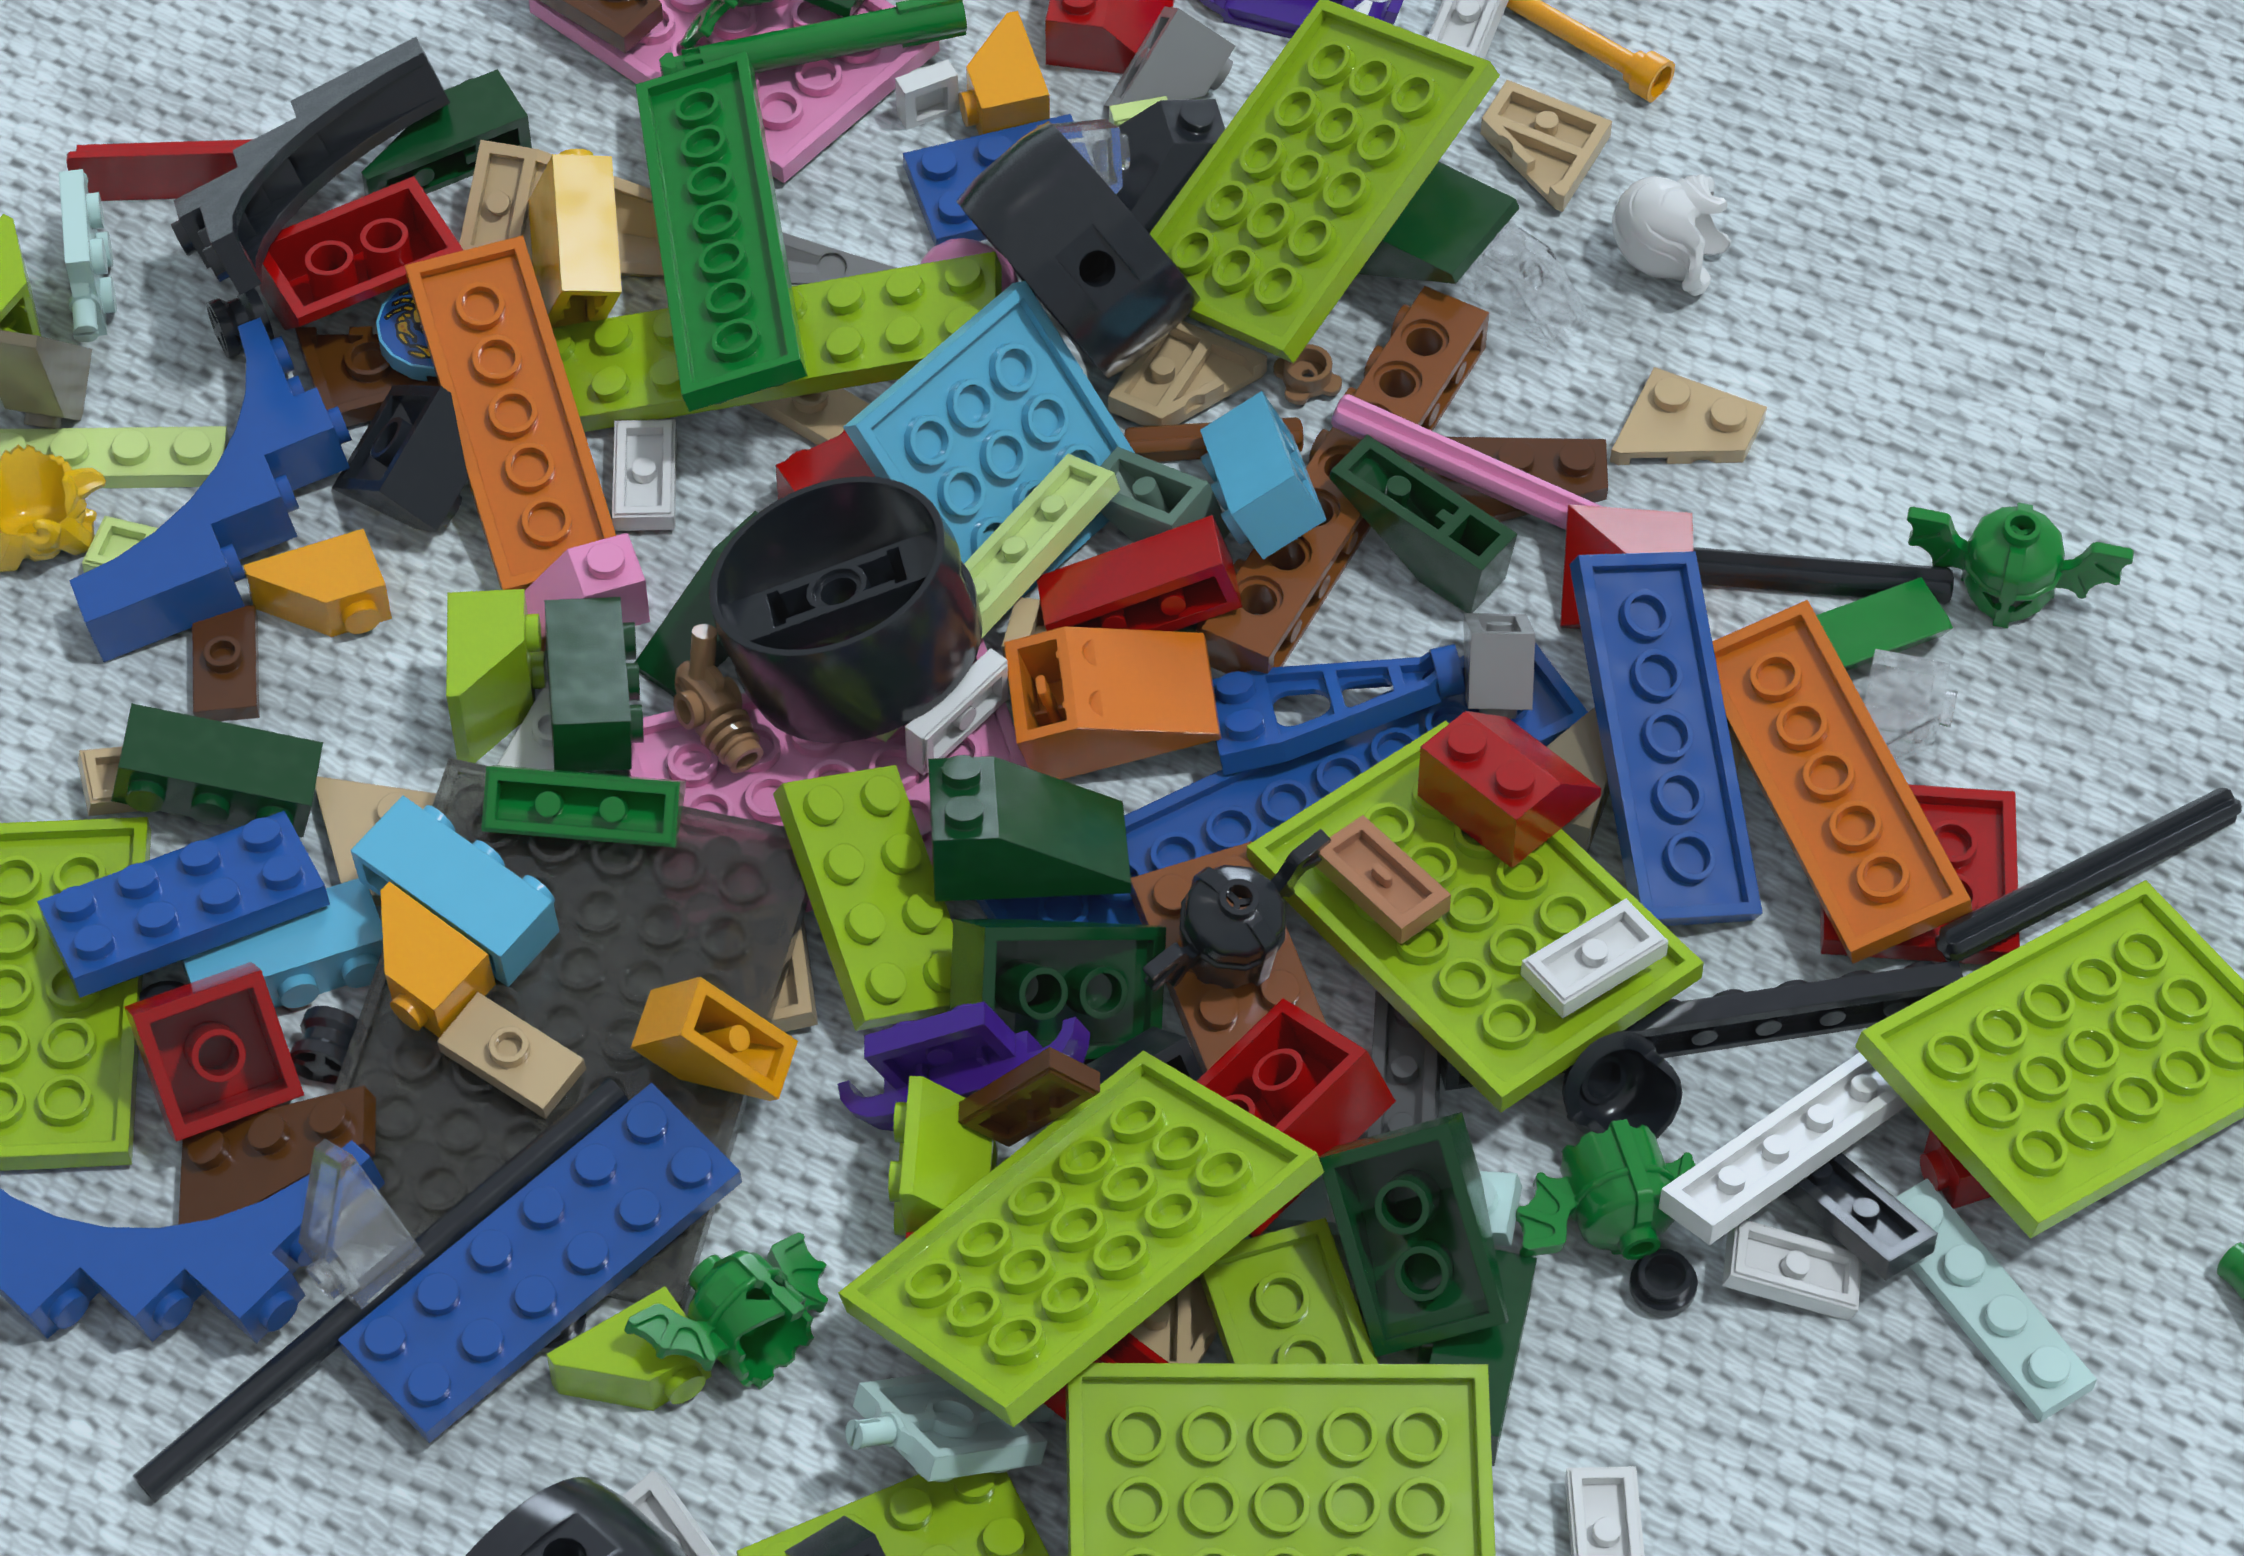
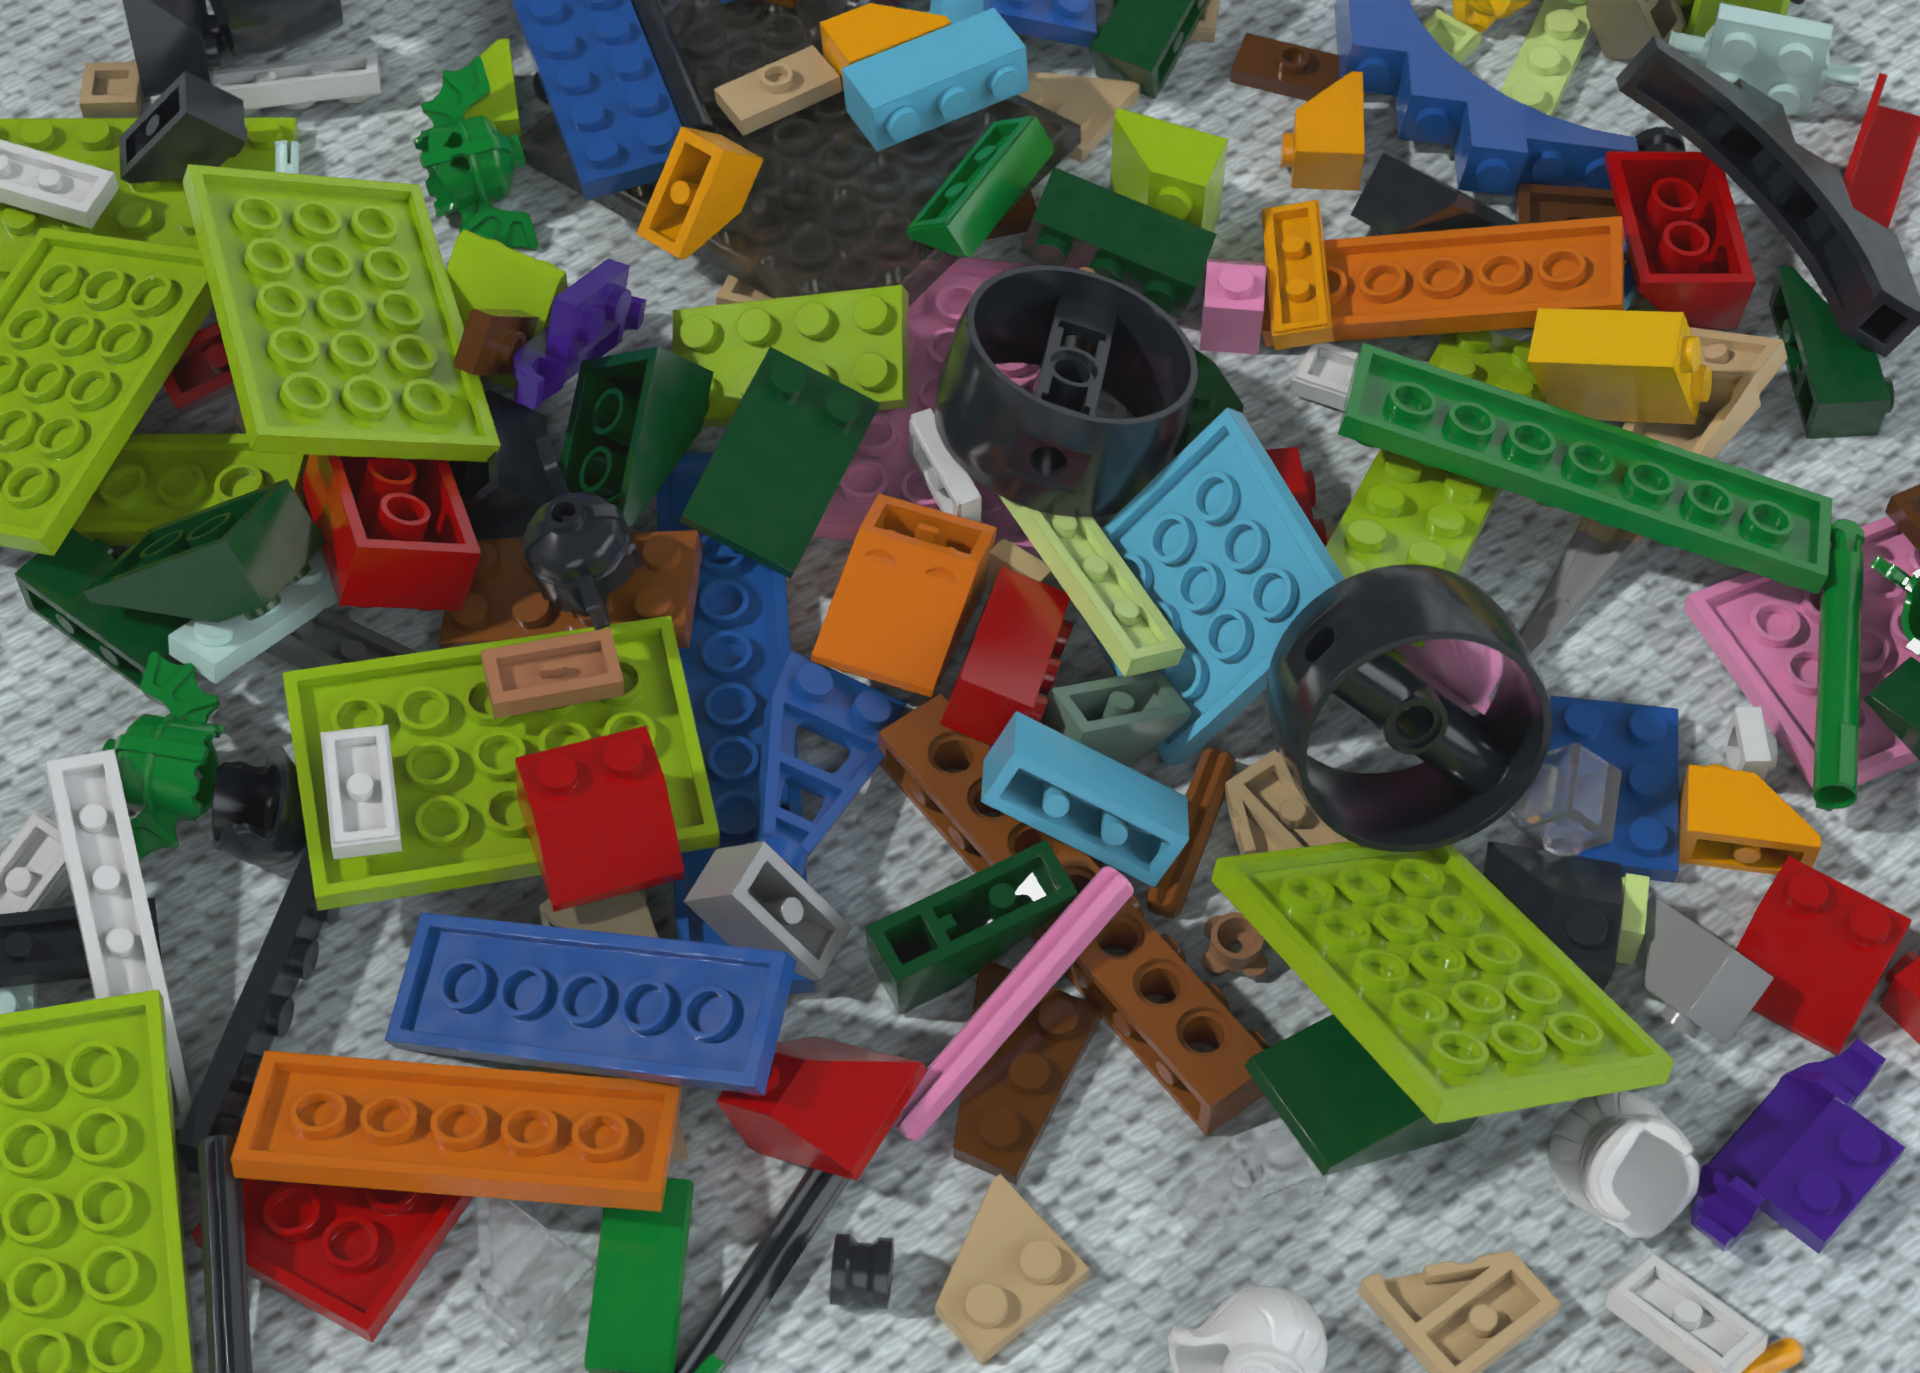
camera: 115 degrees right, 0 degrees up
(531, 542) = (1297, 275): none -> light orange tile
(1751, 500) = (861, 1271): none -> black wheel

